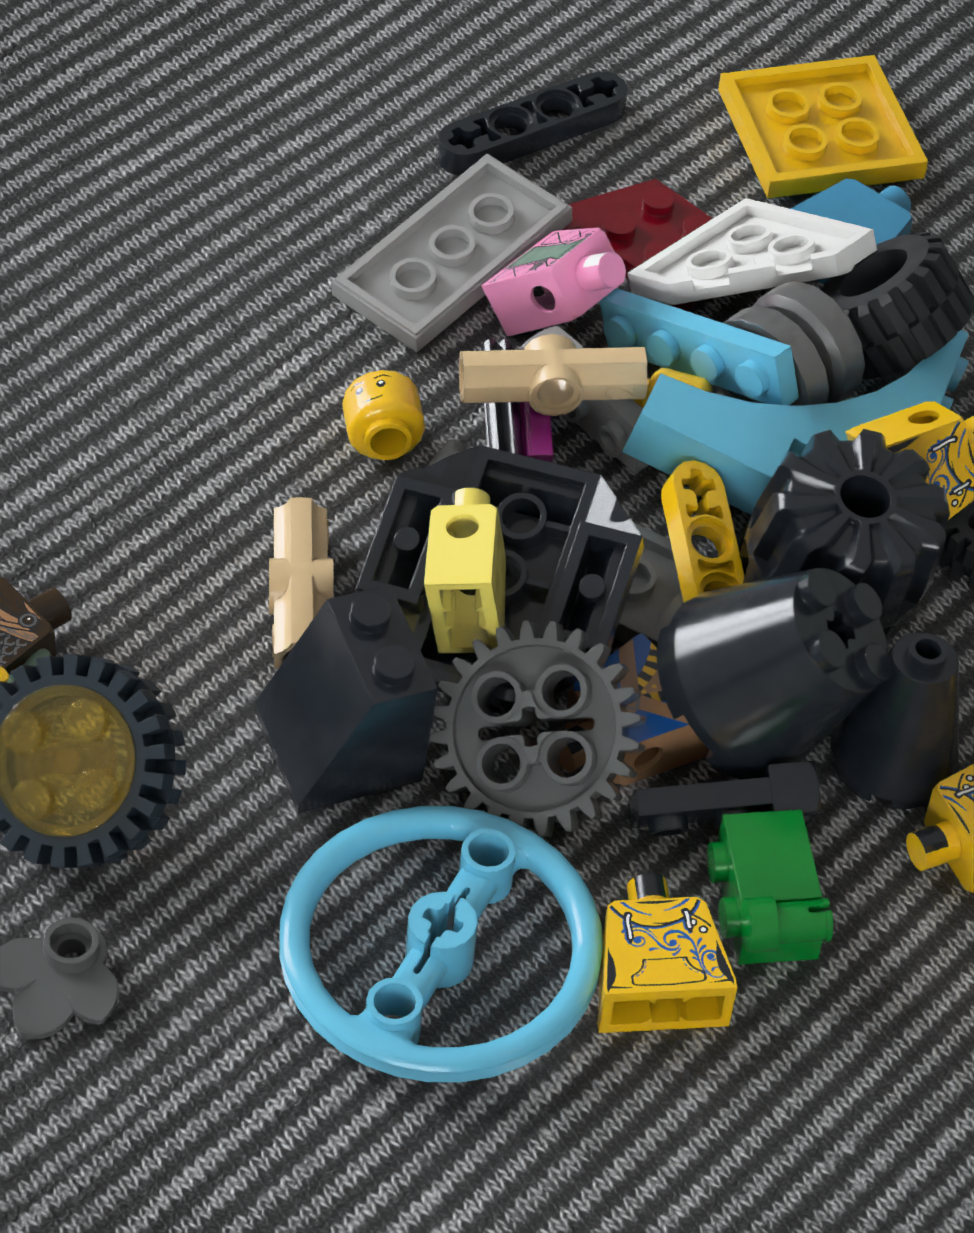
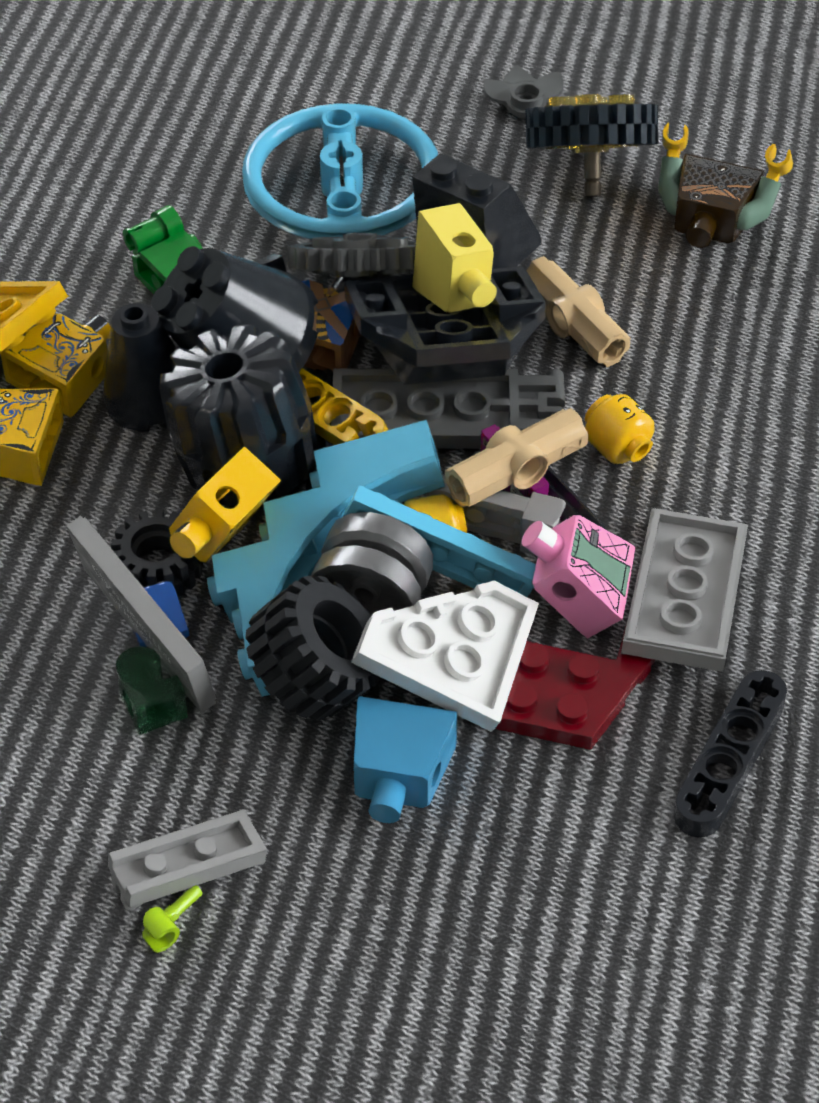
camera: 155 degrees right, 0 degrees up
(662, 963) = (218, 209): yellow torso -> none
(821, 125) = (497, 872): yellow plate -> none

